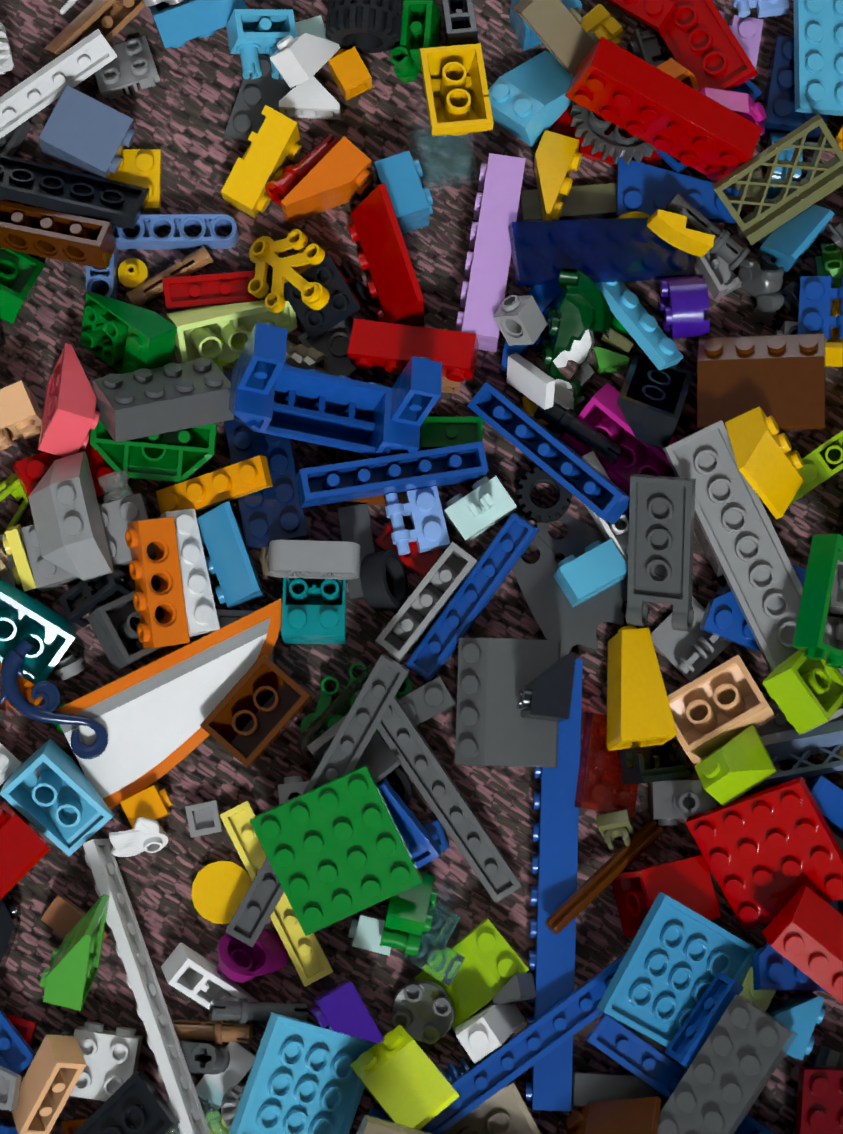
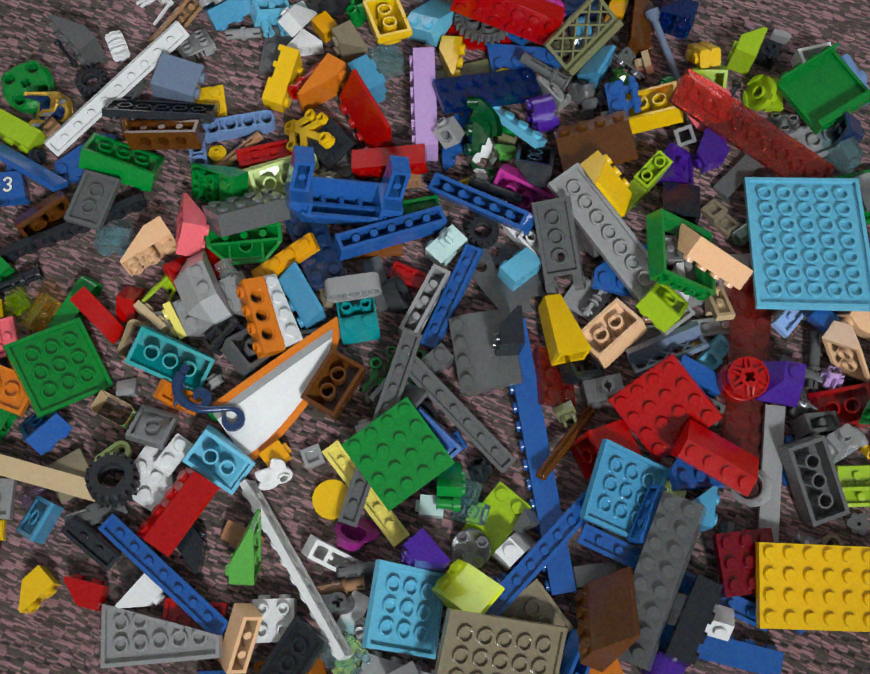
camera: 10 degrees left, 10 degrees down
(209, 60) = (243, 33): none -> light grey pin
(383, 118) = (347, 42): none -> dark tan slope
(426, 517) = (415, 255): light blue plate -> none
(461, 891) = (480, 470): none -> black gear
(530, 381) = (461, 166): white tile -> none
(673, 230) = (525, 70): yellow slope -> none
(735, 766) = (631, 359): lime slope -> none

